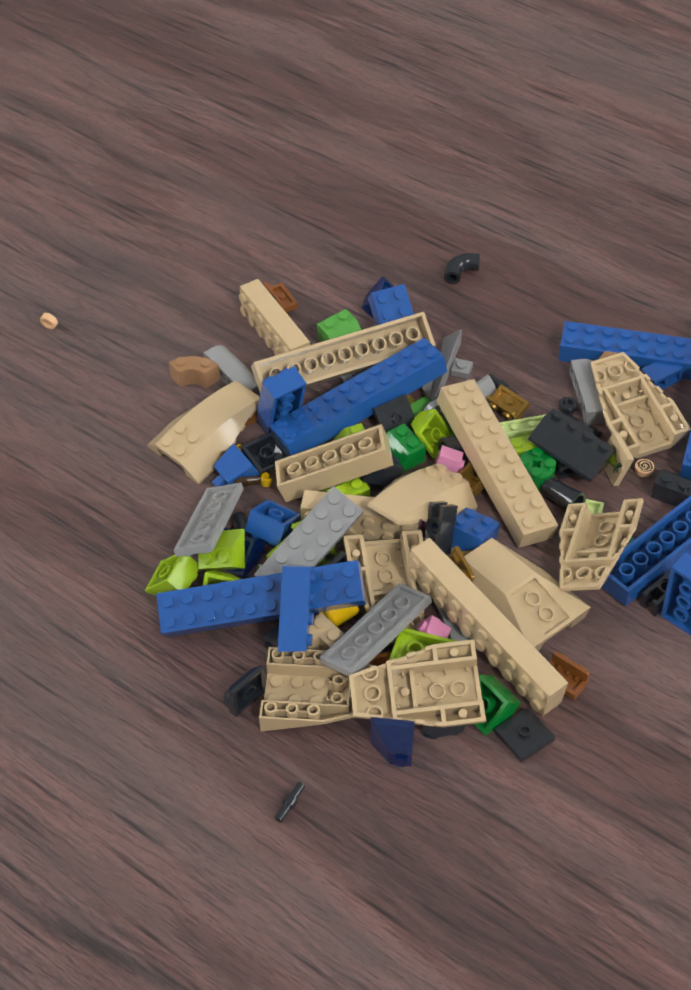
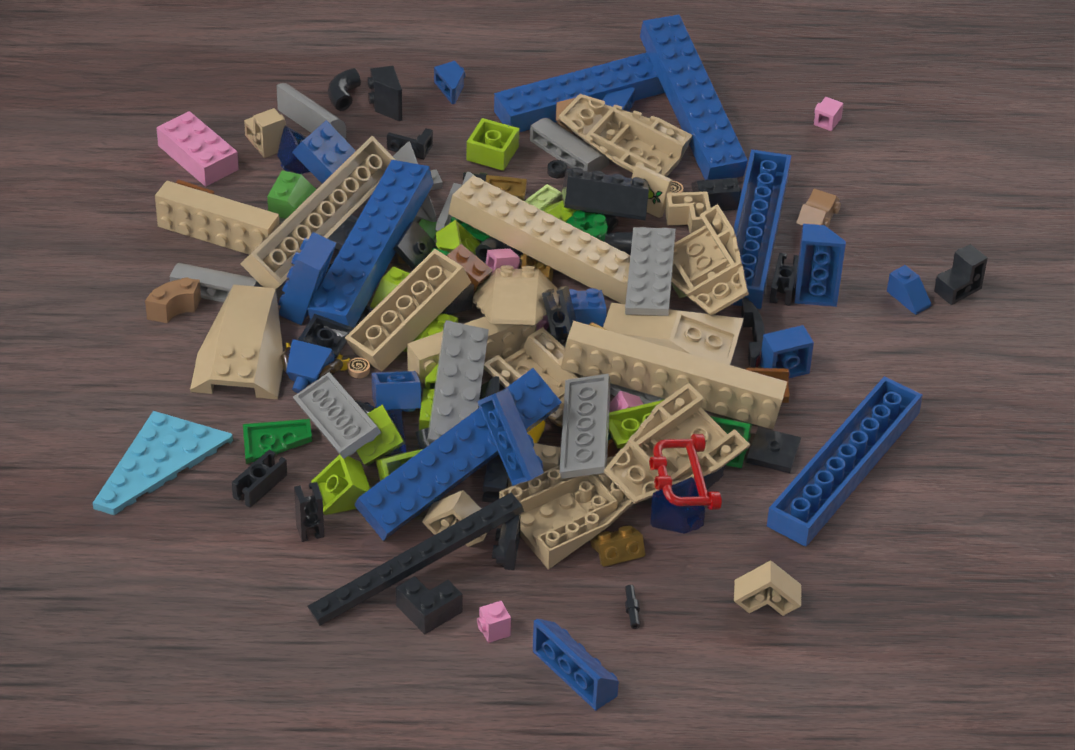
camera: 40 degrees left, 5 degrees down
(90, 480) = (155, 457): none -> medium azure wing
(122, 584) = (309, 511): none -> black piece
(124, 539) = (259, 478): none -> black piece
(141, 710) = (429, 607): none -> black brick
(161, 512) = (276, 436): none -> green wing
(161, 665) = (415, 559): none -> black plate
(174, 751) = (494, 621): none -> bright pink brick
(198, 822) = (573, 664): none -> blue slope
(224, 650) = (450, 511): none -> tan brick
(272, 491) = (358, 367): none -> tile
(316, 265) = (197, 148): none -> bright pink brick
(325, 744) = (618, 545): none -> pearl gold bracket
(371, 271) = (265, 131): none -> tan brick
(383, 712) = (664, 482): none -> red bar
(401, 854) = (768, 586): none -> tan brick
(410, 451) = (474, 267): none -> dark orange bracket
(418, 275) = (305, 111): none -> light grey brick
(474, 339) = (420, 146): none -> black bracket
(486, 282) = (385, 92): none -> black slope
(529, 361) = (492, 144): none -> lime brick
(544, 528) = (650, 271): none -> light grey plate
(548, 296) = (450, 80): none -> blue slope
(568, 779) = (844, 461): none -> blue brick
(585, 641) = (753, 319): none -> black slope
(603, 656) = (788, 350): none -> blue brick
(635, 486) = (686, 209): none -> tan brick

